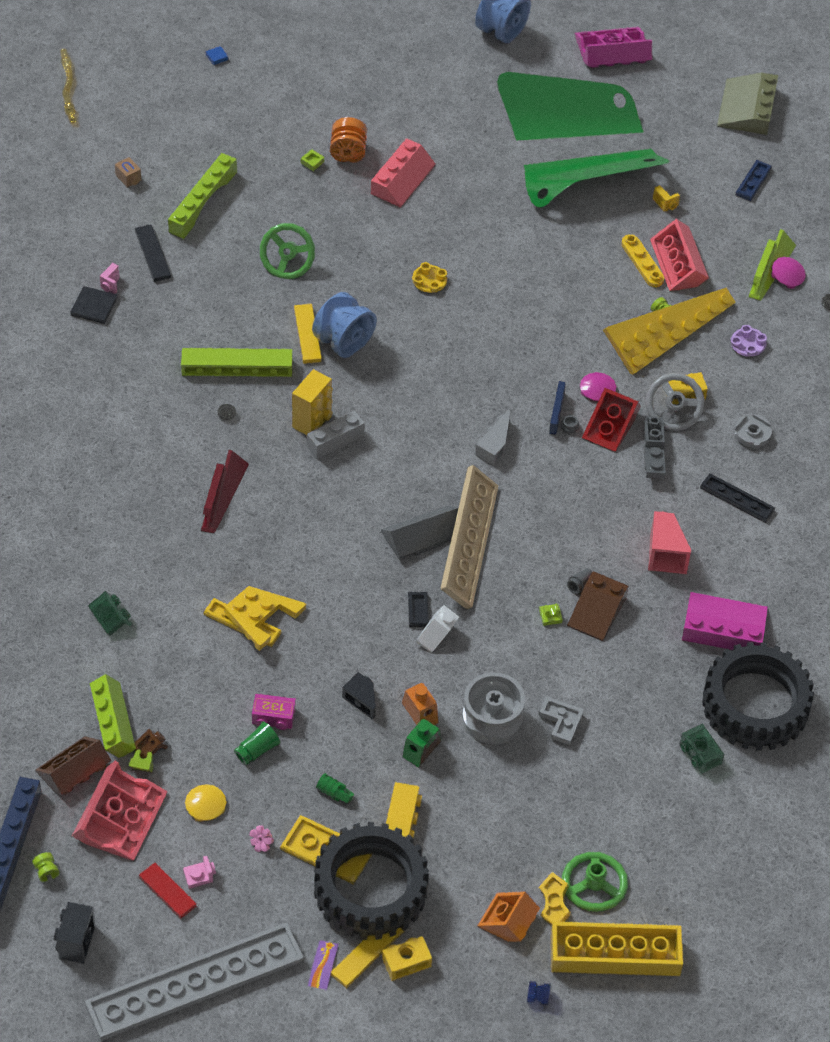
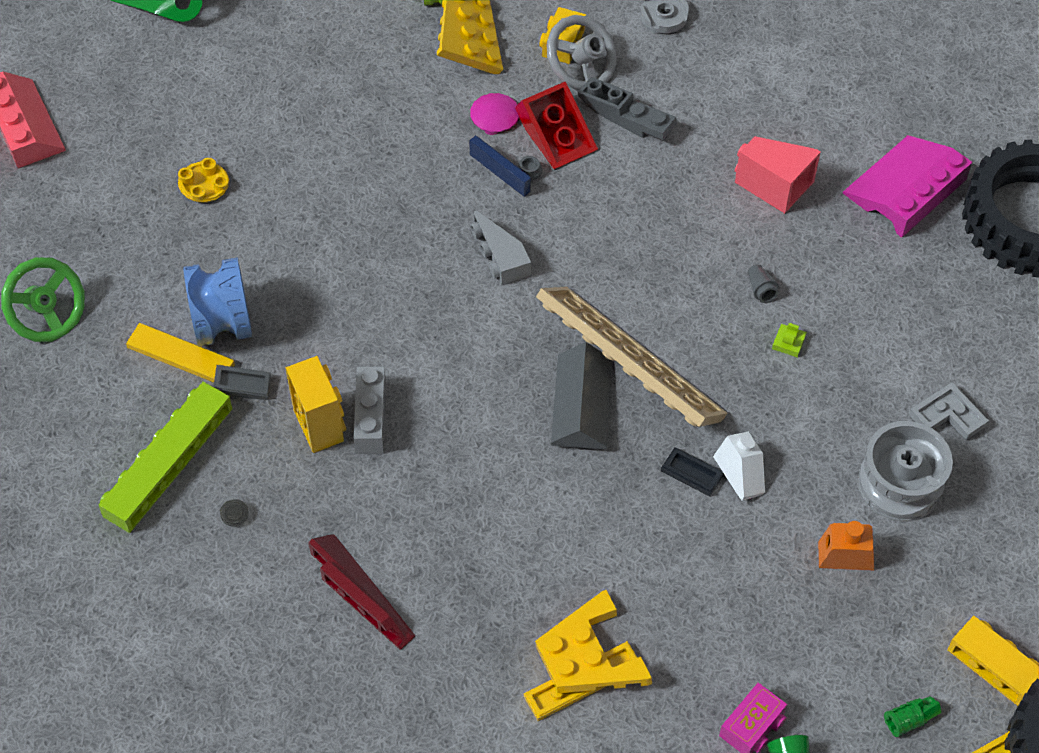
camera: 55 degrees left, 5 degrees up
(306, 363) = (242, 382): none -> dark grey tile
(360, 693) = (789, 603): black slope -> none
(424, 739) = (902, 572): green torso -> none
(598, 606) = (812, 286): reddish brown slope -> none
(737, 497) = (742, 77): black tile -> none

